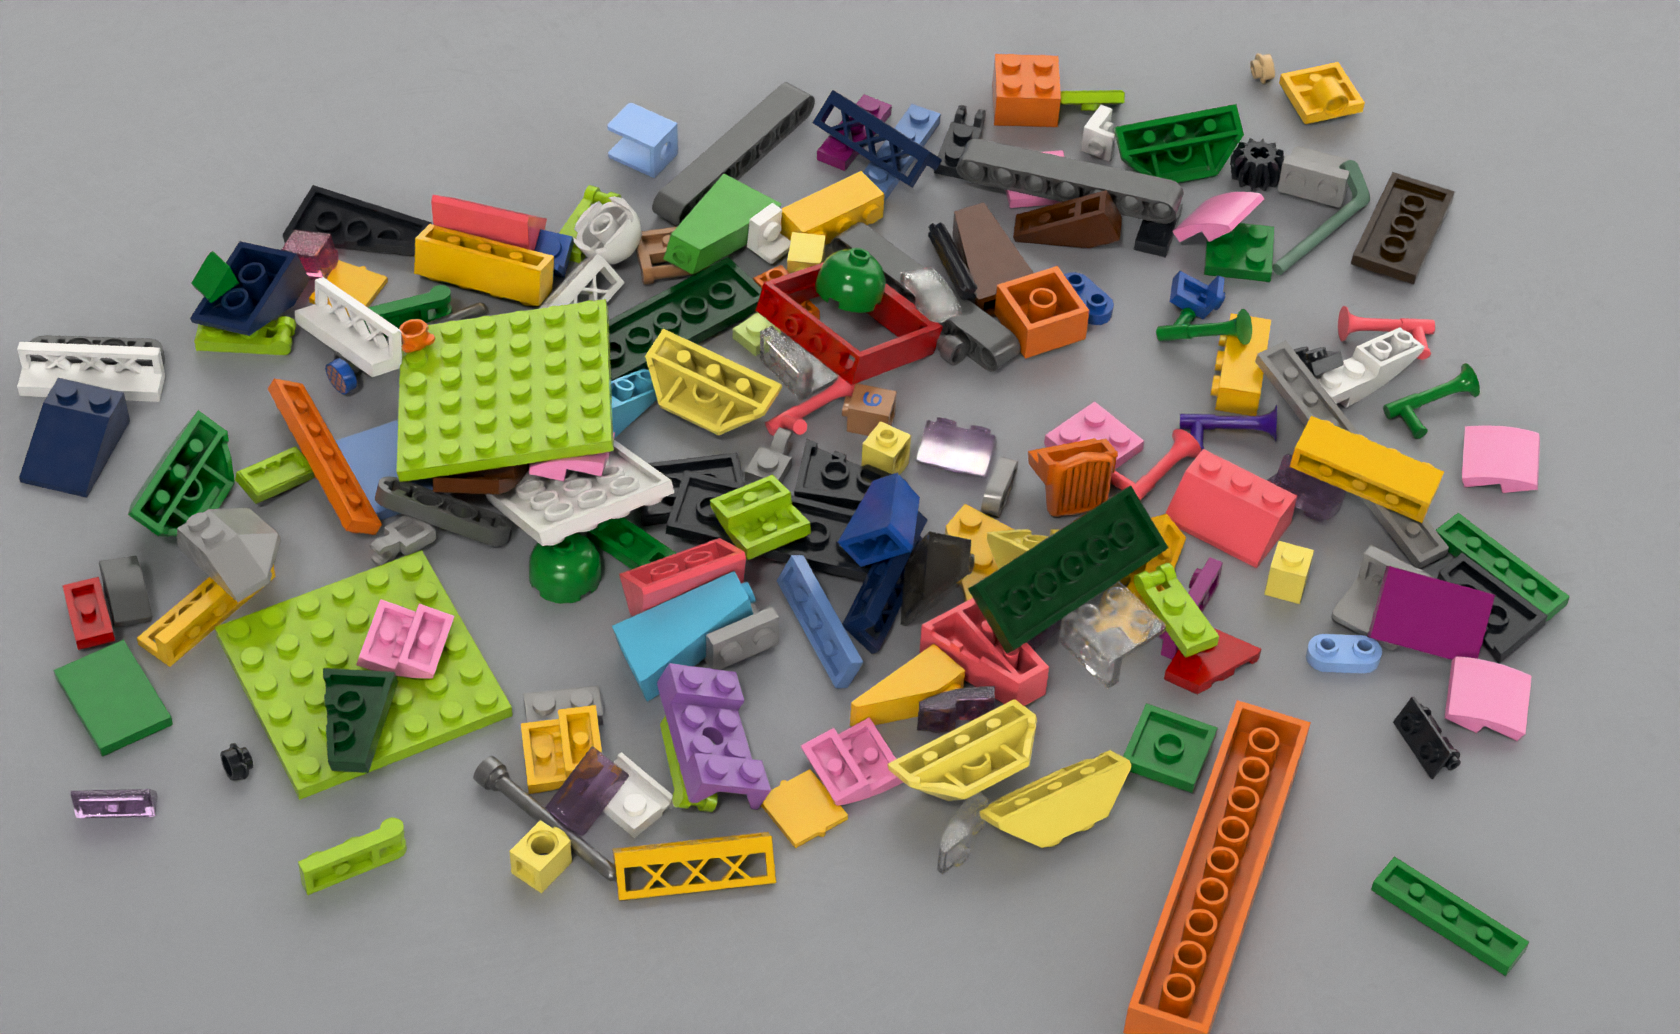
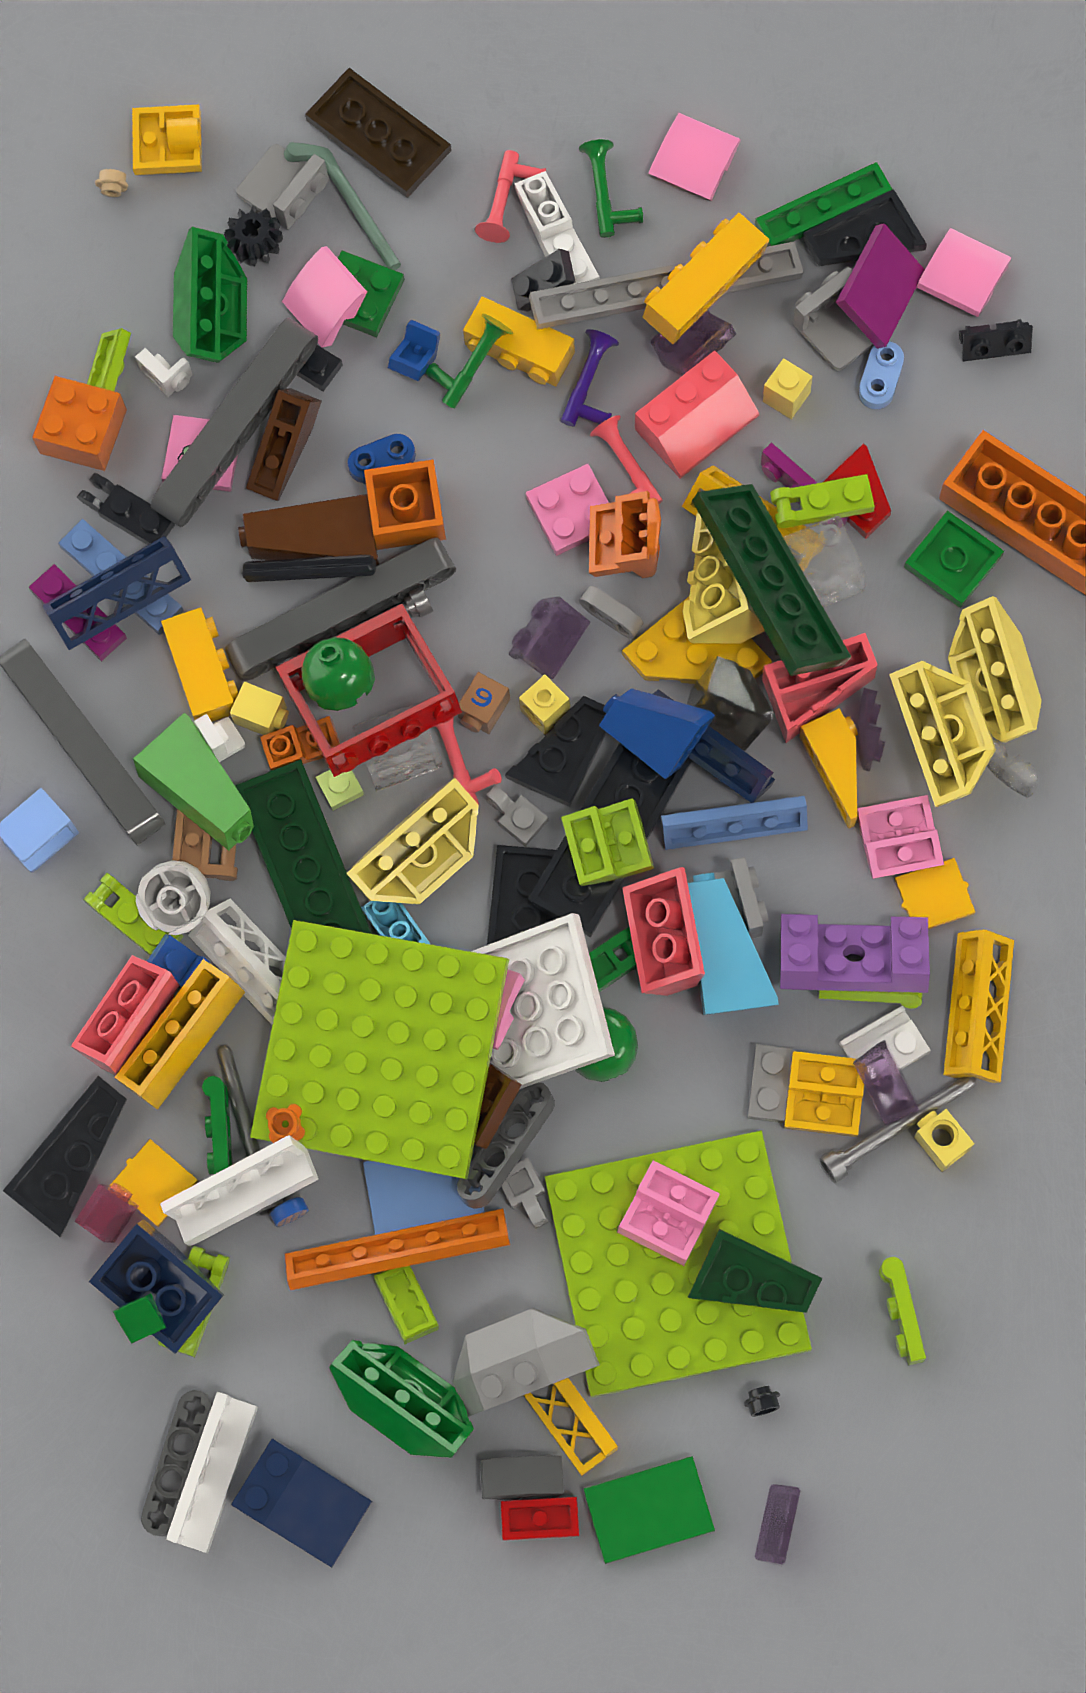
camera: 65 degrees left, 25 degrees up
(932, 294) = (365, 599): clear slope -> none

